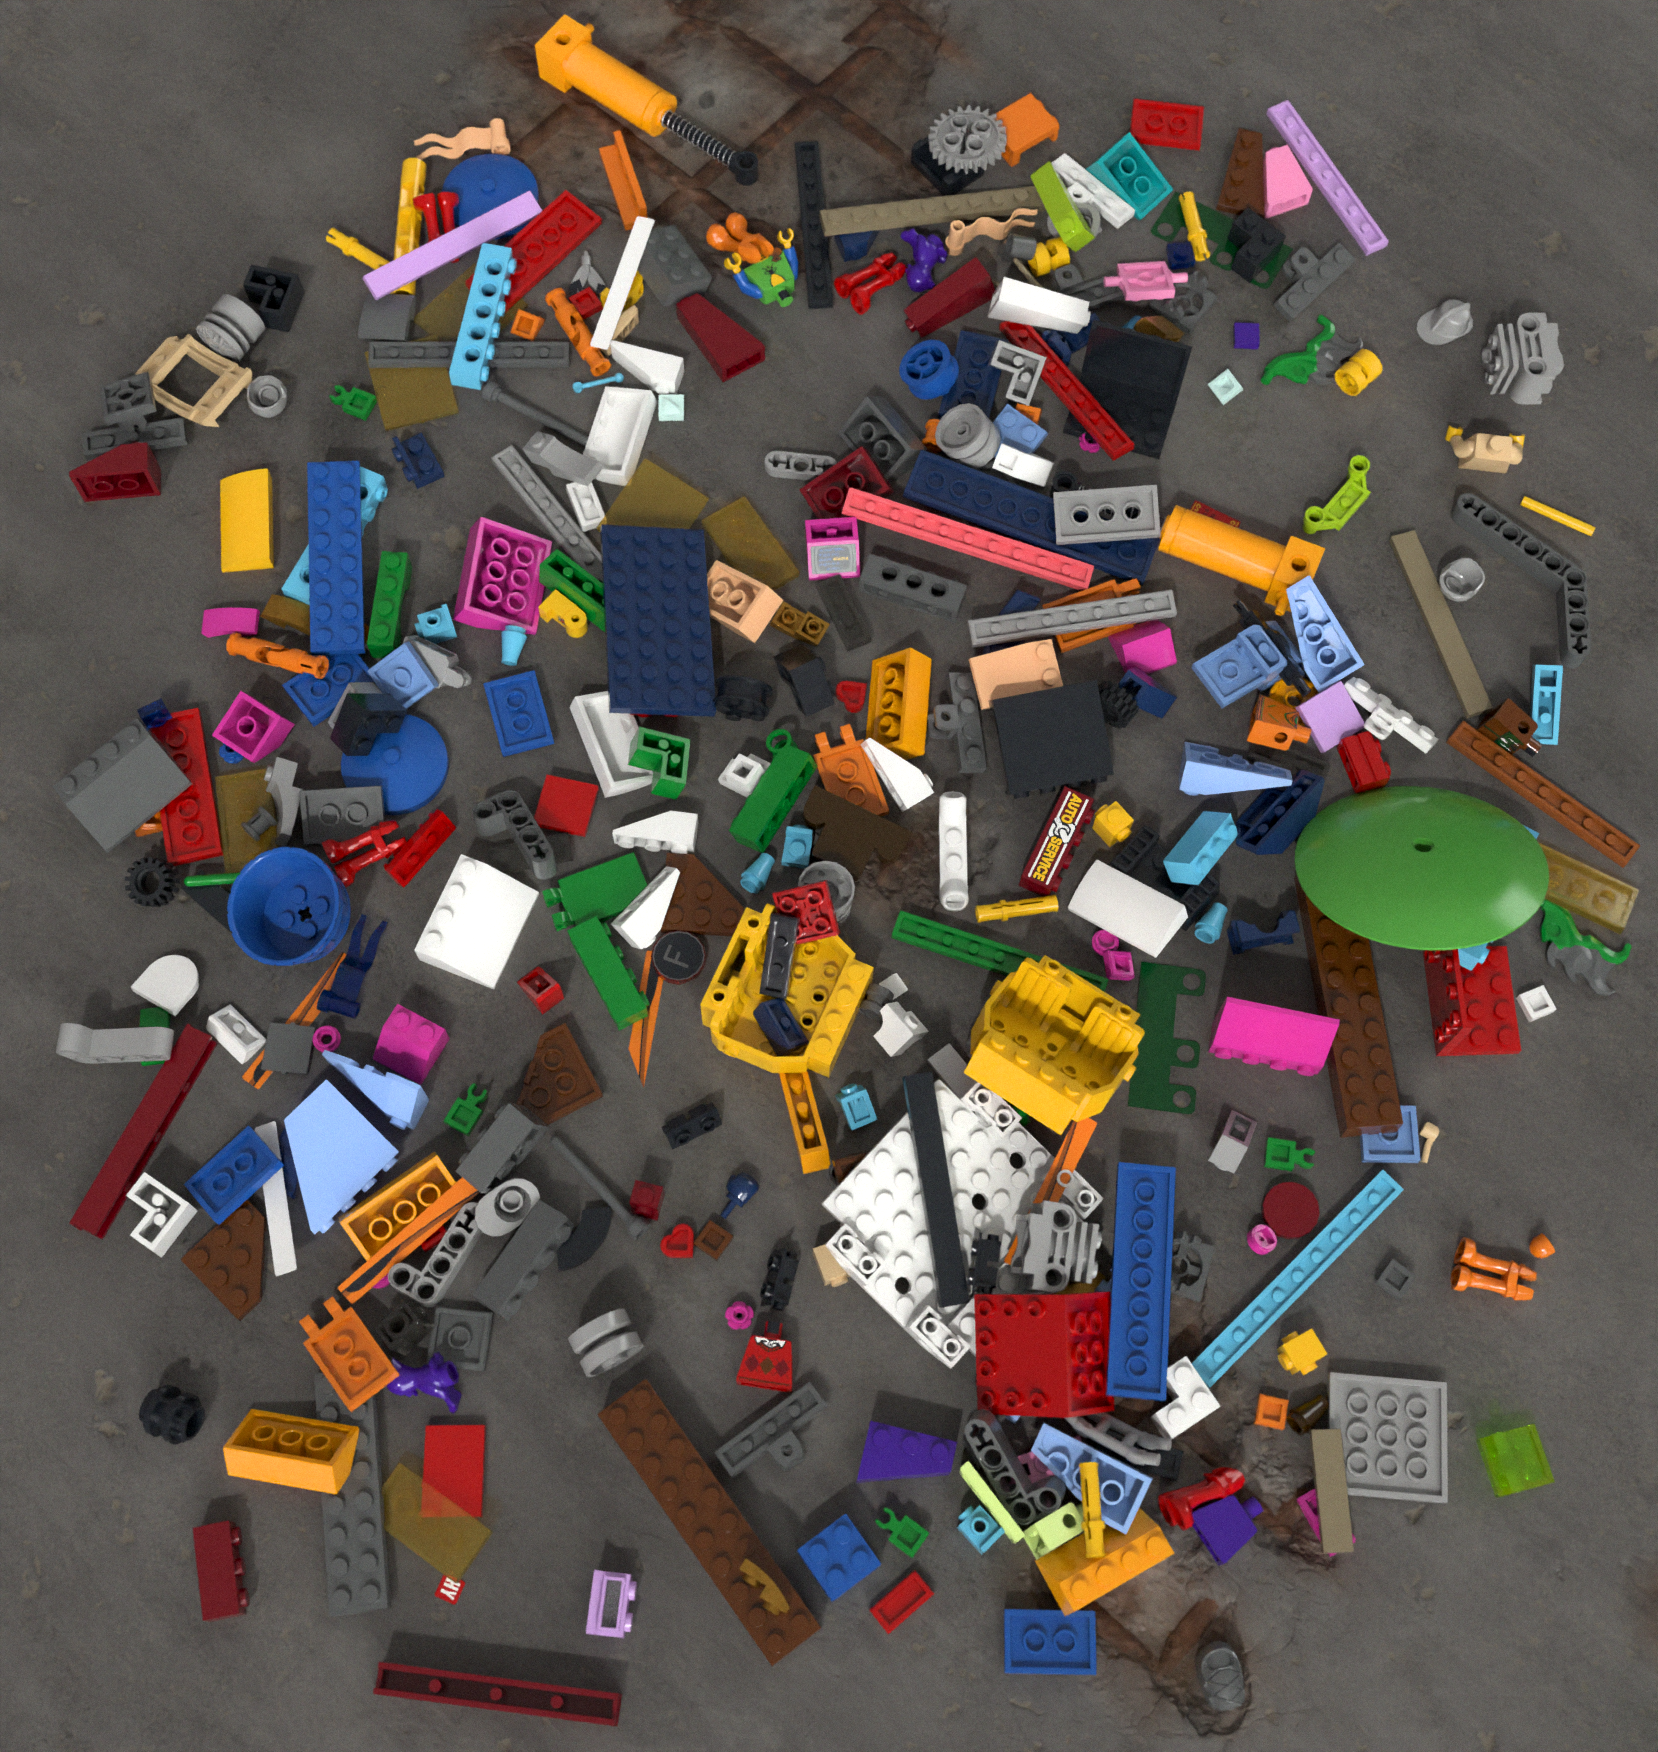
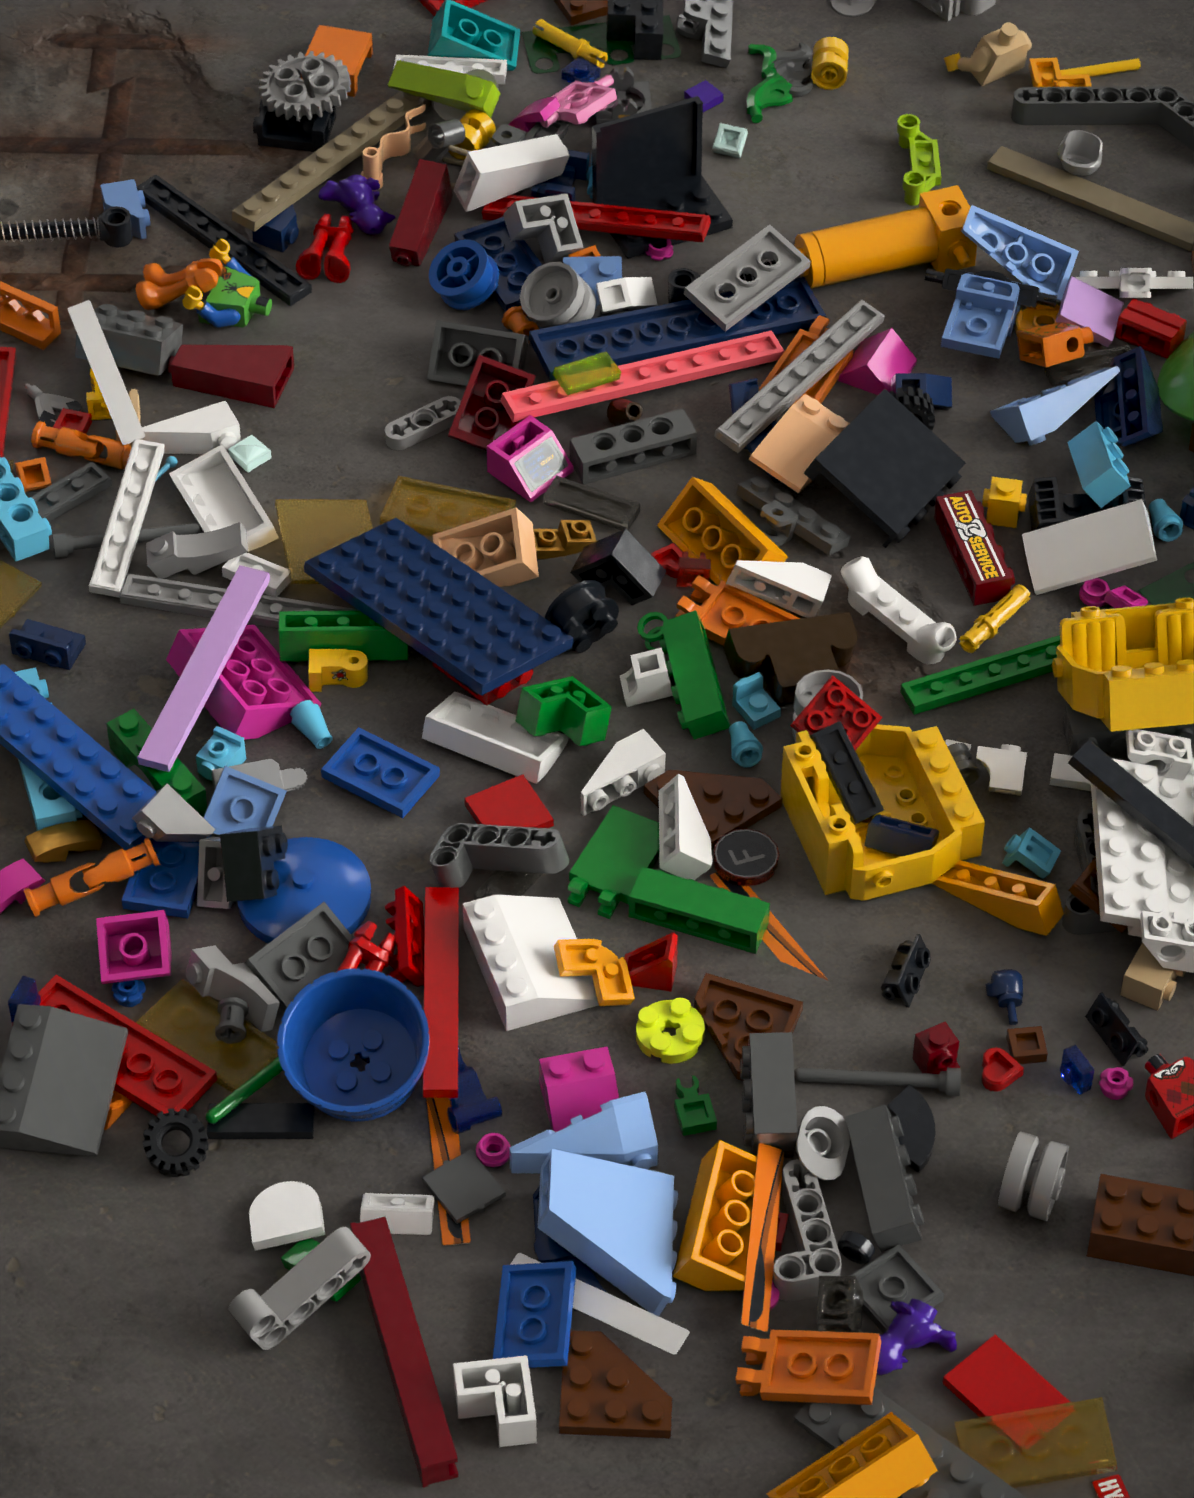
camera: 40 degrees left, 20 degrees down
(345, 654) = (171, 819): none -> light grey slope
(396, 904) = (441, 991): none -> red tile
(462, 1292) = (856, 1247): none -> black tile
(465, 558) = (203, 669): none -> lavender tile
(502, 1030) = (674, 1014): none -> neon yellow plate
(508, 965) = (590, 958): none -> light orange plate
(544, 402) = (126, 518): none -> white tile
(719, 1286) = (1076, 1070): none -> clear blue plate
(772, 151) = (126, 195): none -> medium blue slope
(855, 718) = (690, 568): none -> clear red tile
(922, 512) = (587, 373): none -> clear neon green tile
(931, 552) = (623, 411): none -> dark brown cone
(1105, 270) = (535, 112): none -> dark pink slope
(1507, 500) = (1046, 73): none -> light orange plate

